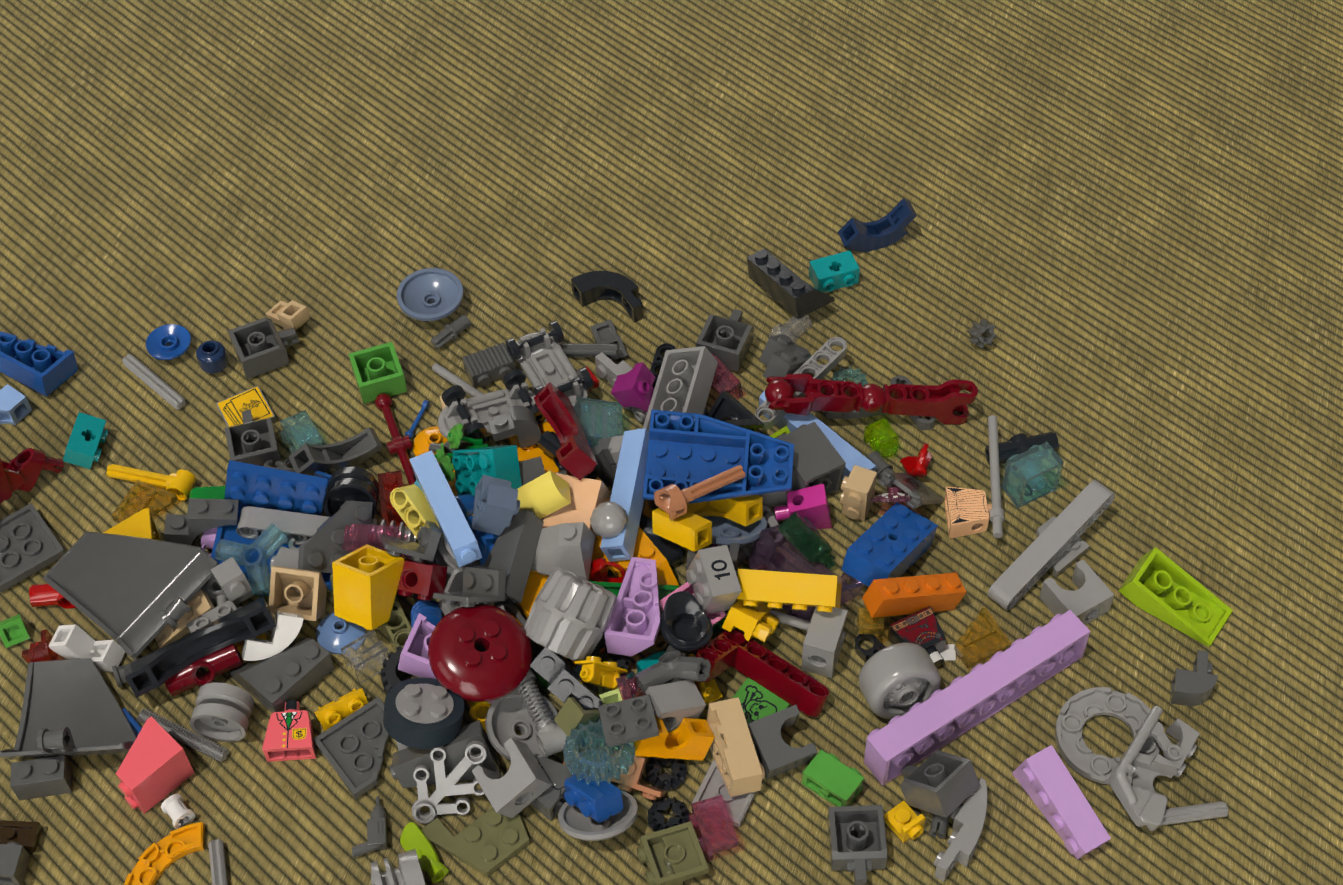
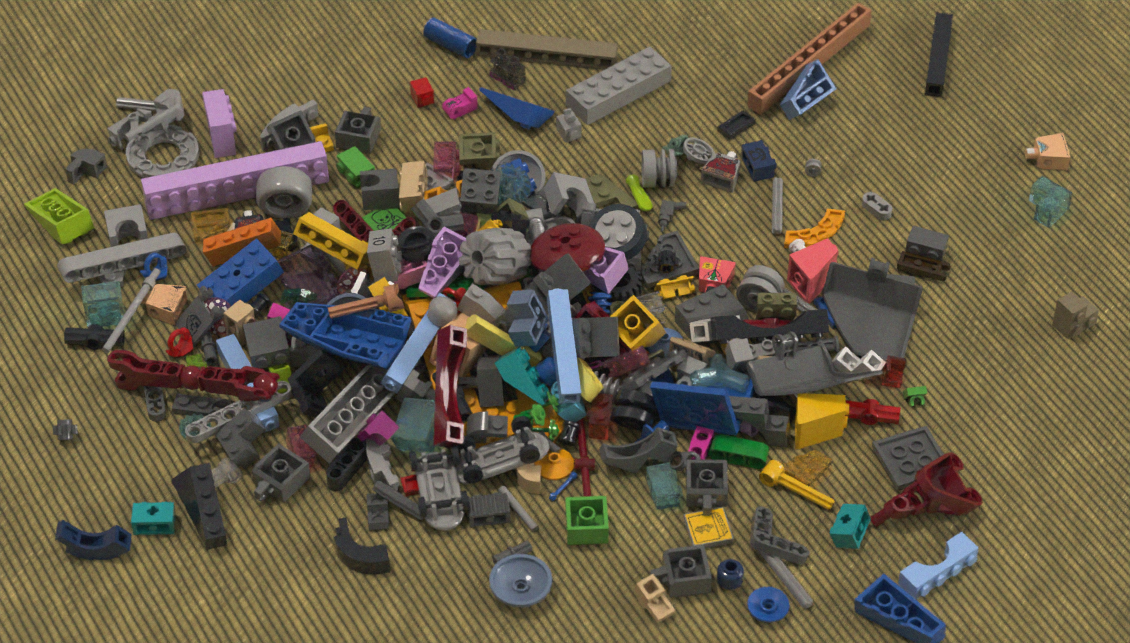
camera: 165 degrees left, 5 degrees down
(177, 405) = (767, 543): none -> dark grey beam
(186, 681) = (776, 306): none -> olive plate
(354, 717) = (666, 261): none -> black gear
(855, 531) = (260, 304): none -> black bush
(1005, 551) = (161, 265): none -> blue piece

